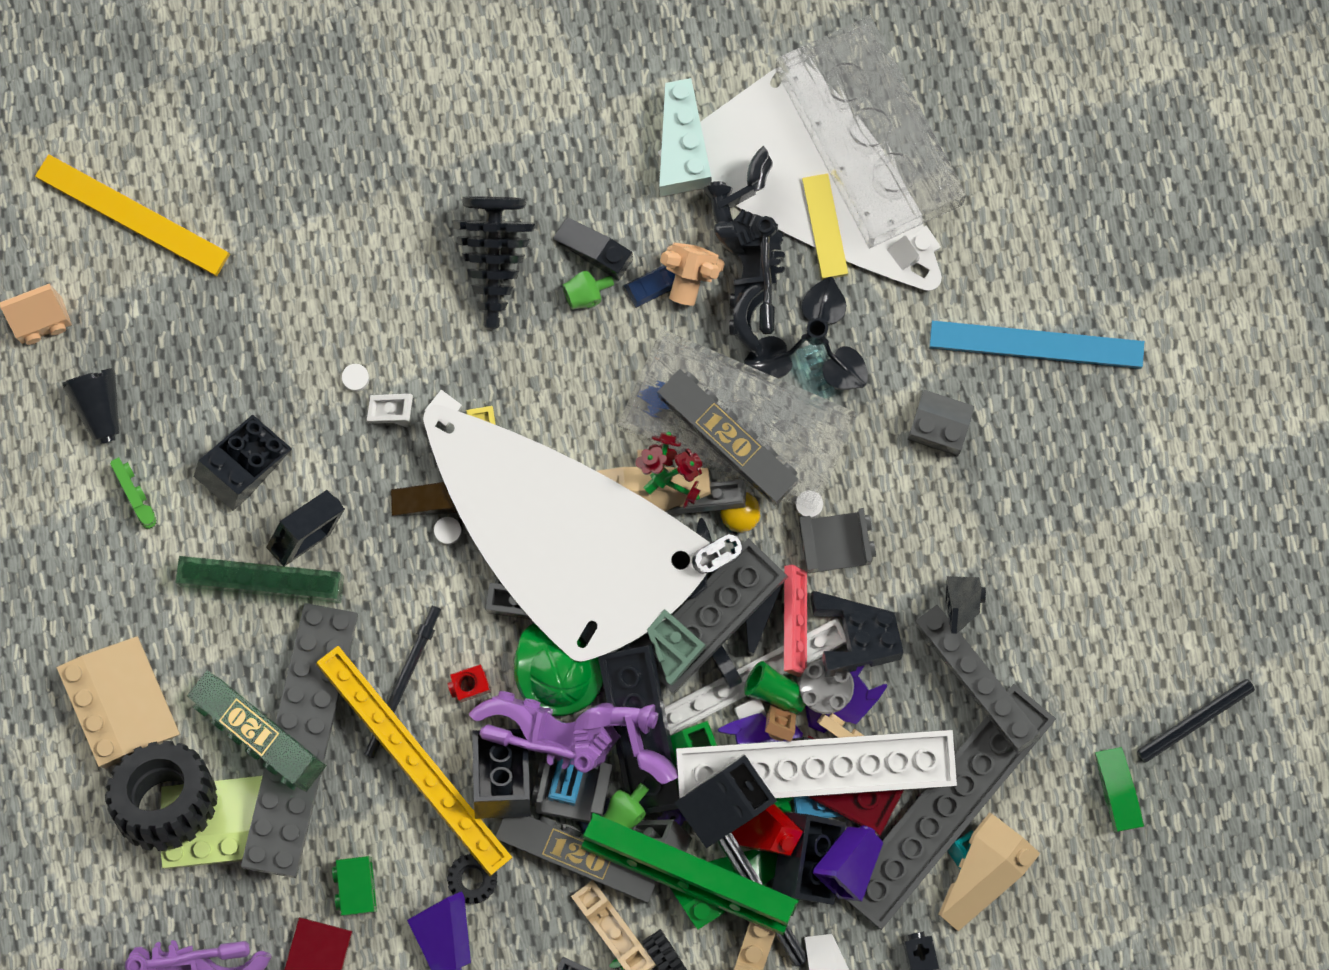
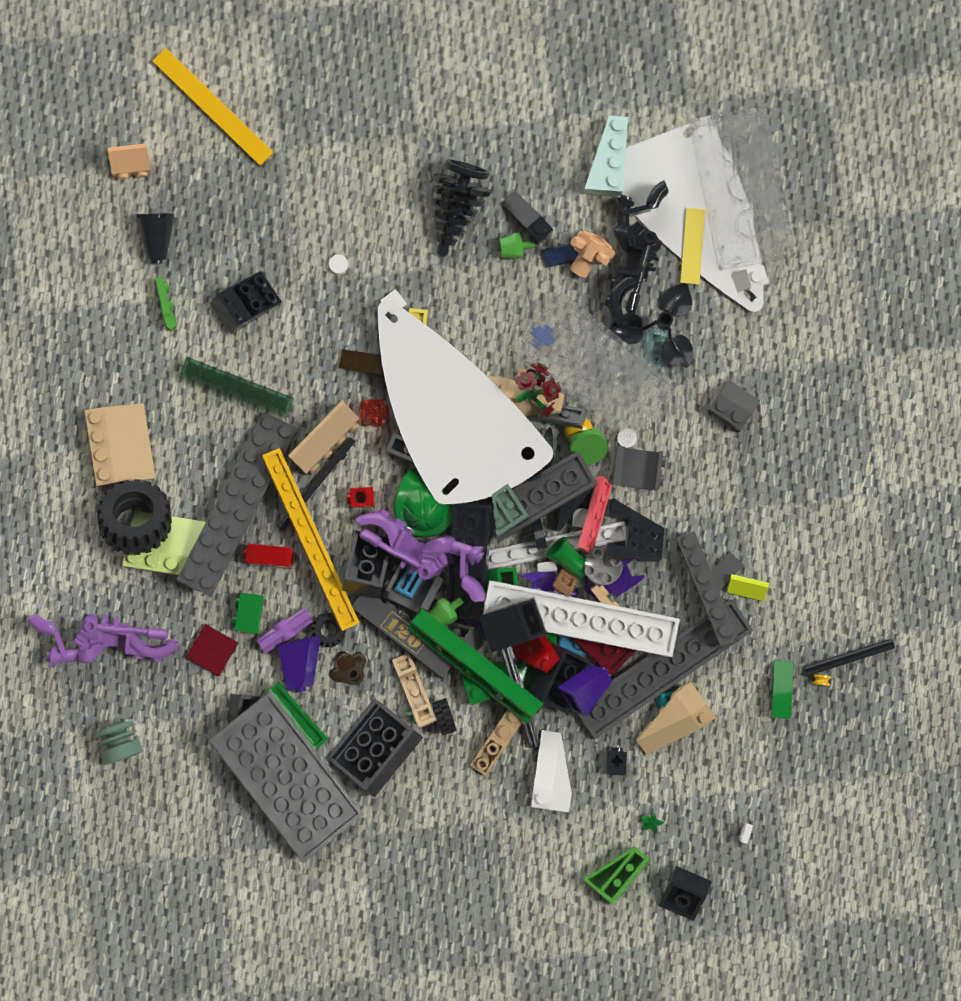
camera: 10 degrees right, 5 degrees up
(256, 731) = (209, 490): clear green brick -> none
(305, 527) = (278, 361): black window -> none
(363, 798) = (269, 555): none -> red slope
(390, 409) = (356, 293): white slope -> none
(397, 615) = (324, 438): none -> tan slope
(411, 896) = (284, 630): none -> medium lavender piece
(447, 530) = (374, 388): white tile -> none
(455, 563) = (373, 412): none -> clear red brick
(512, 921) = (348, 665): none -> dark brown plate
(713, 548) = (553, 460): beam -> none
(728, 437) = (583, 377): dark grey brick -> none
(763, 526) = (590, 444): none -> bright green tile
(775, 629) = (579, 517): none -> white tile
(963, 600) = (713, 533): black slope -> none
(995, 645) = (725, 568): none -> dark grey tile
(1031, 662) = (747, 587): none -> neon yellow tile
(1036, 344) = (815, 369): dark azure tile -> none
(1169, 761) = (821, 680): none -> yellow bush

